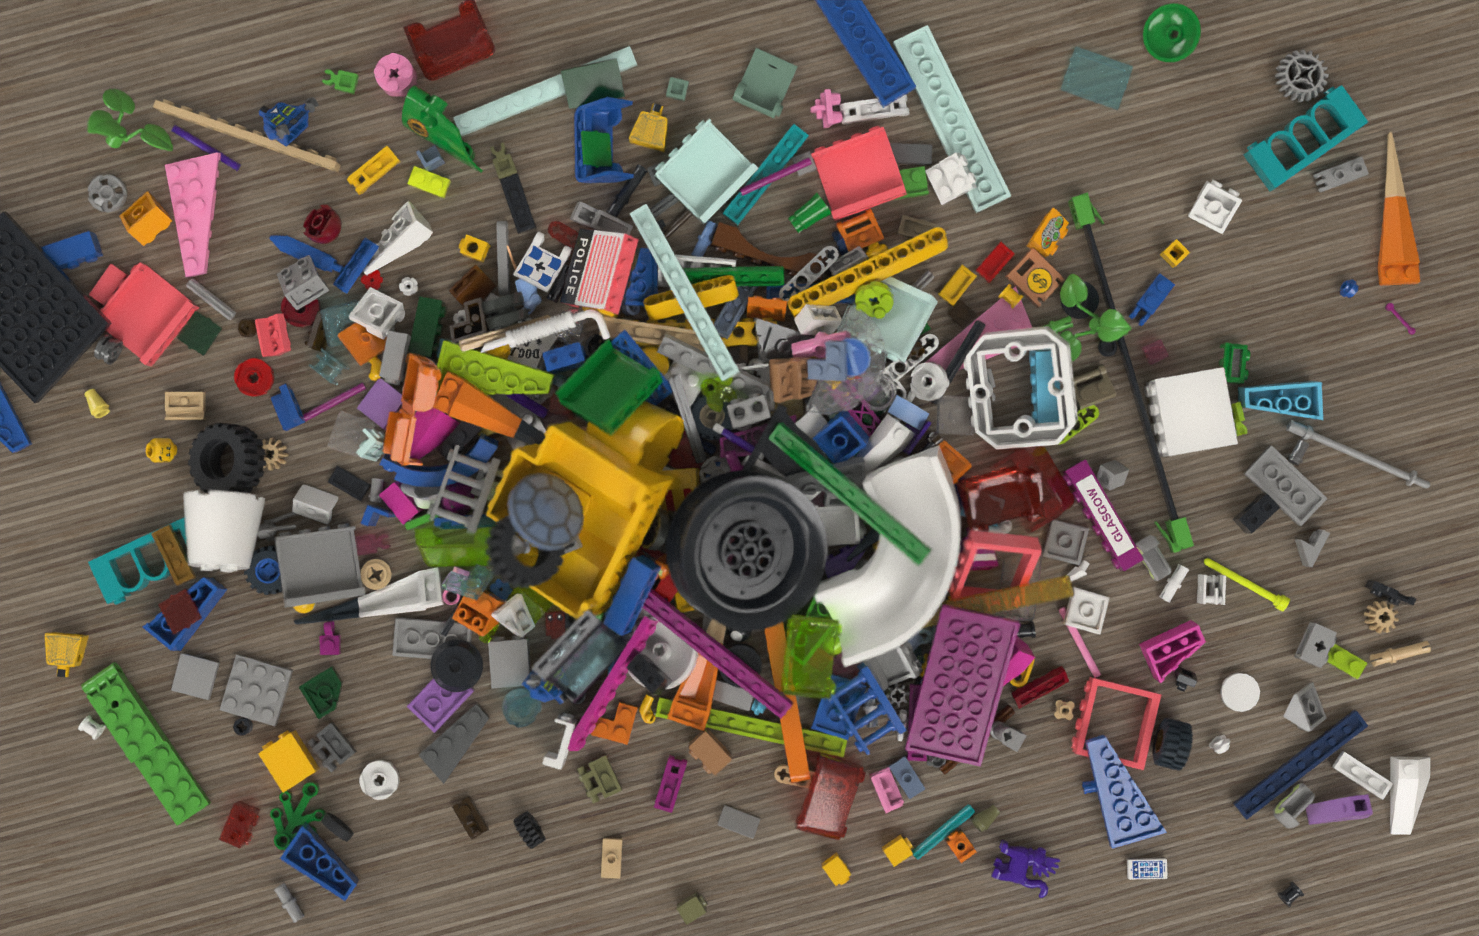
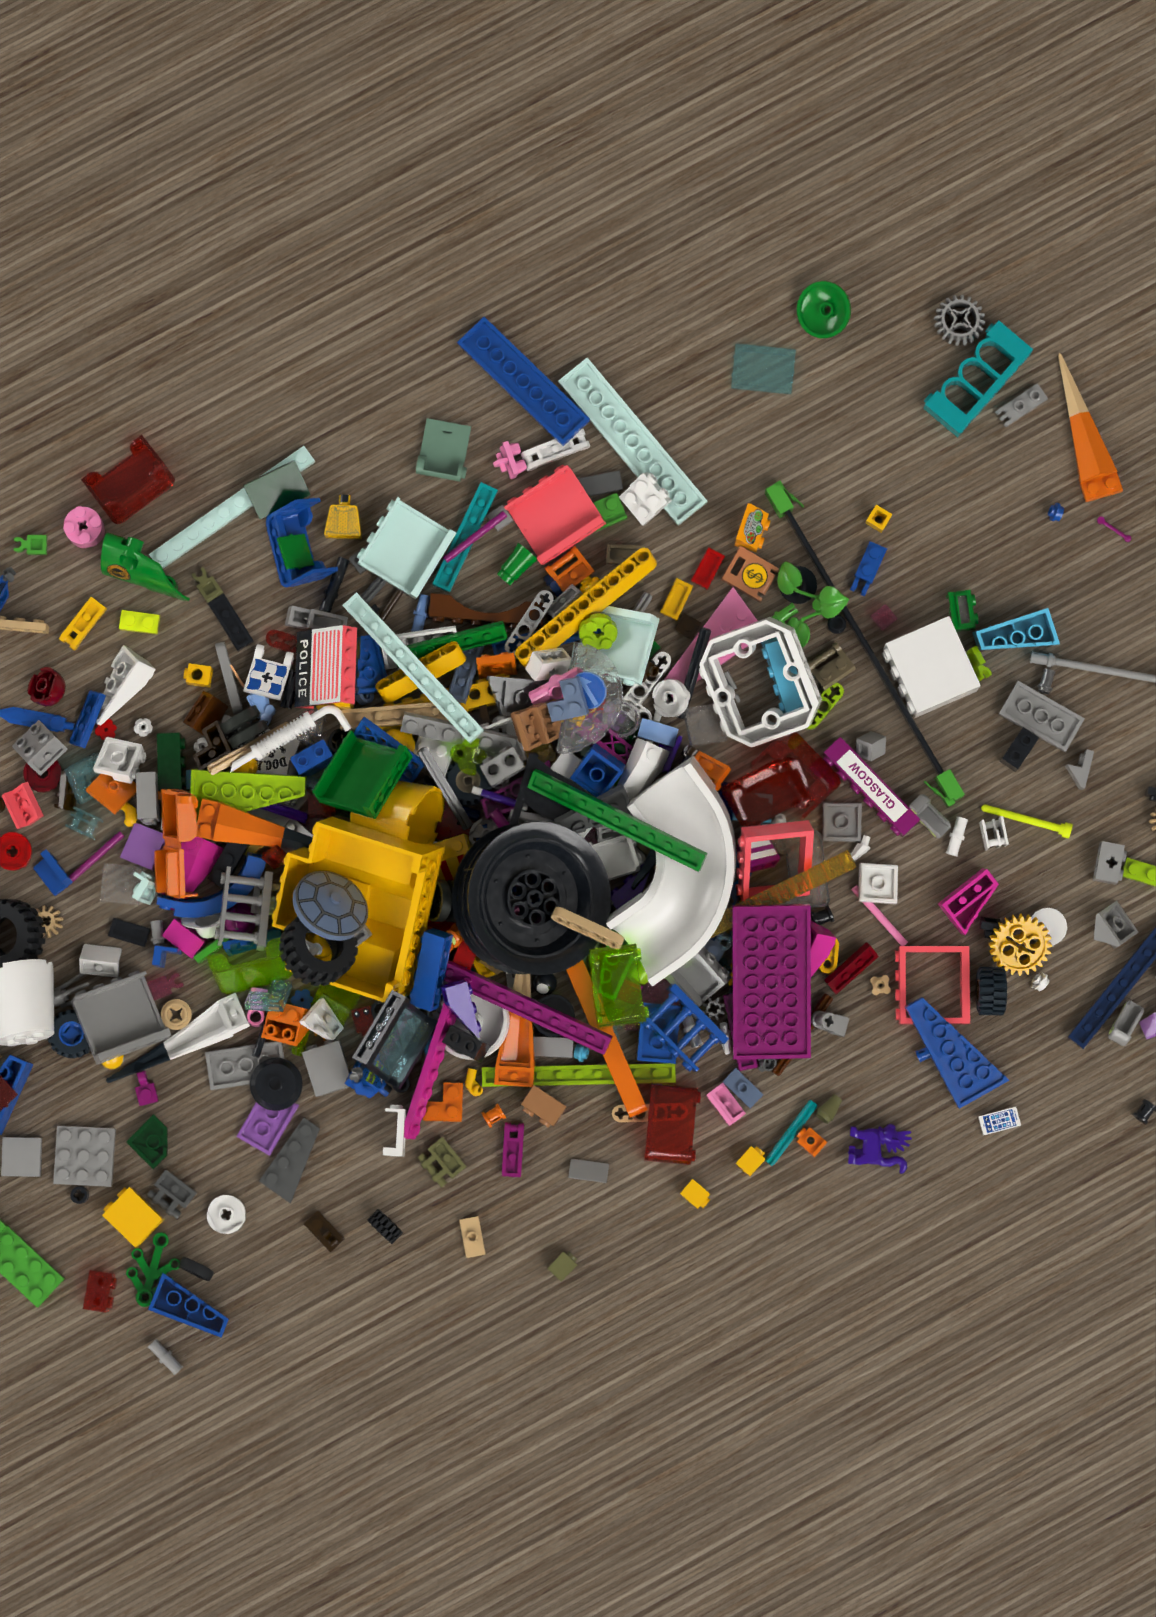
camera: 10 degrees left, 5 degrees down
(431, 158) = (136, 598): sand blue panel -> none
(505, 445) = (274, 857): none -> clear red plate
(520, 708) = (348, 1108): clear light blue cylinder -> none
(651, 630) = (458, 999): none -> slope
(659, 746) = (493, 1115): none -> orange bush
(677, 89) = (360, 475): sand green plate -> none
(795, 594) = (587, 928): none -> tan beam
(1010, 296) = (729, 597): yellow bush -> none
(1215, 206) = (907, 464): white plate -> none
(1224, 693) = (1010, 958): none -> yellow gear

